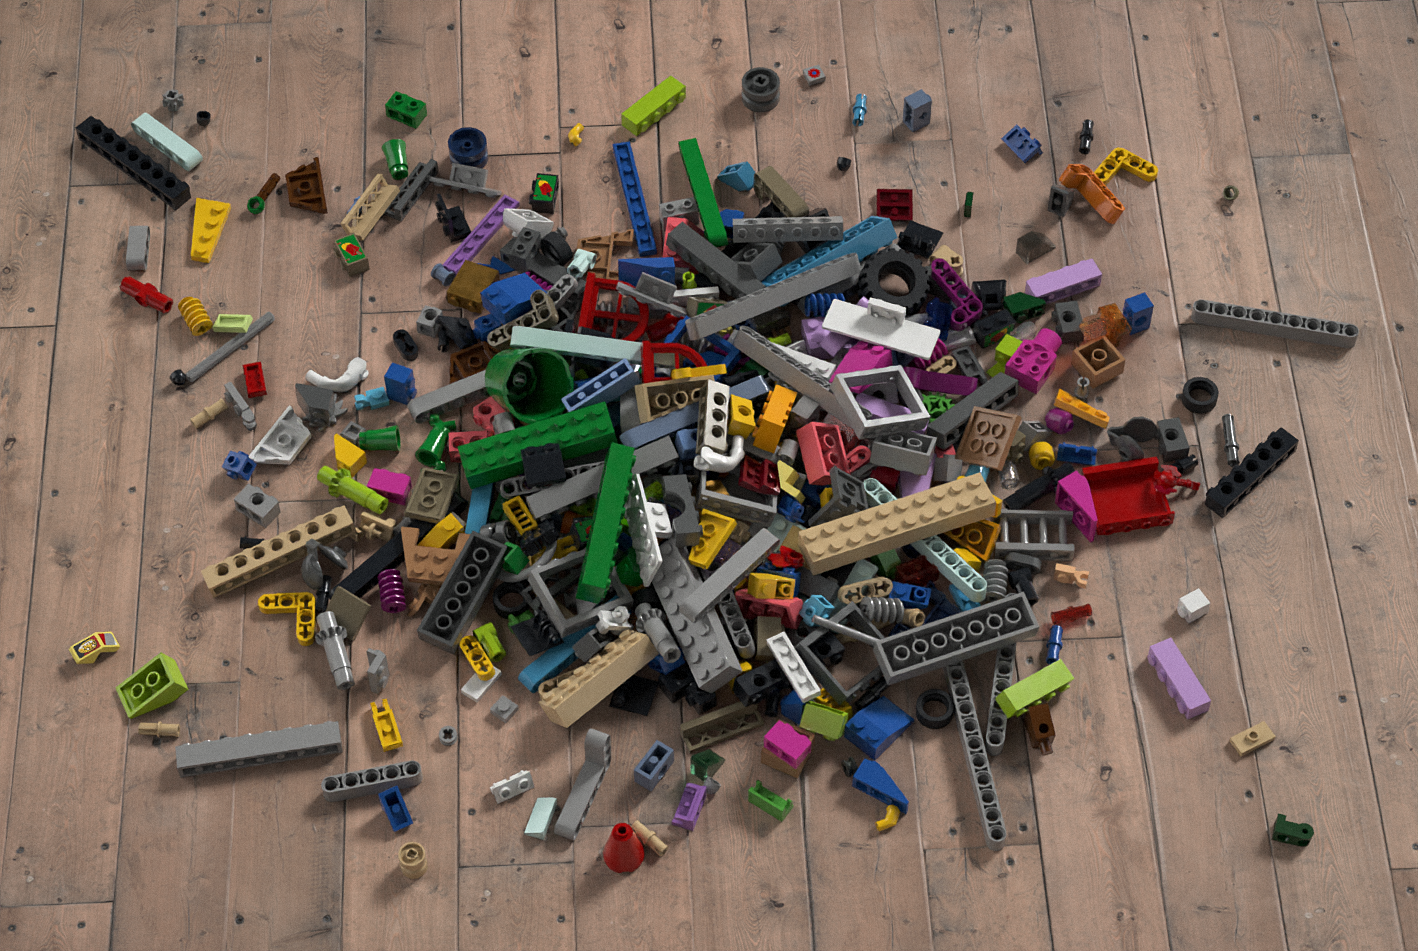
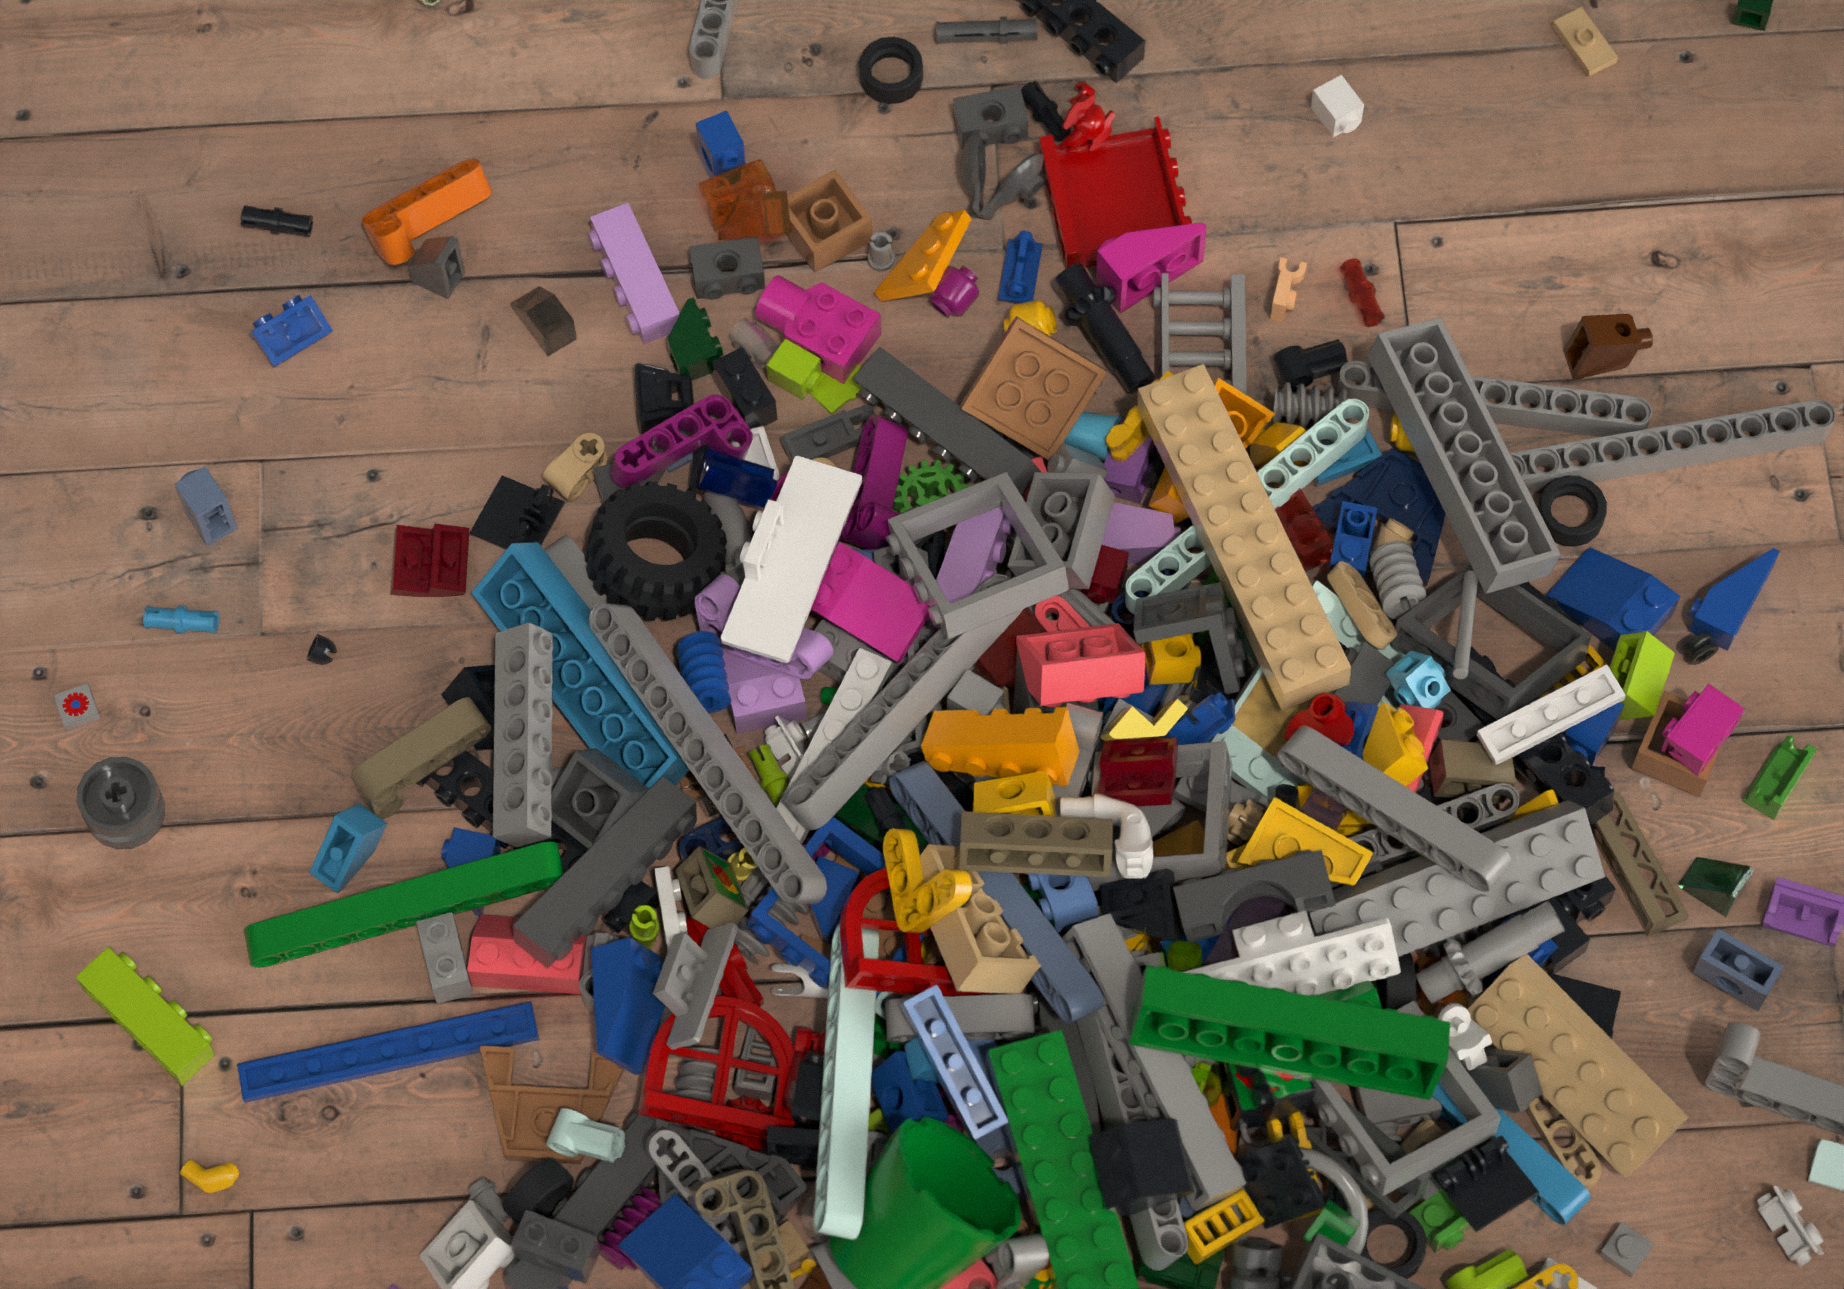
camera: 90 degrees left, 10 degrees up
(545, 193) = (375, 1229): brick -> none
(712, 785) = (1762, 877): light grey hinge -> none
(890, 820) = (1795, 586): yellow arm -> none
(968, 204) = (439, 426): dark green tile -> none
(1017, 561) = (1262, 363): dark grey beam -> none
(1034, 432) = (978, 333): light grey slope -> none
(1034, 689) = (1535, 345): lime brick -> none
(1054, 644) = (1405, 317): blue pin -> none
(1126, 157) = (343, 162): yellow beam -> none
(1178, 678) = (1483, 136): lavender brick -> none

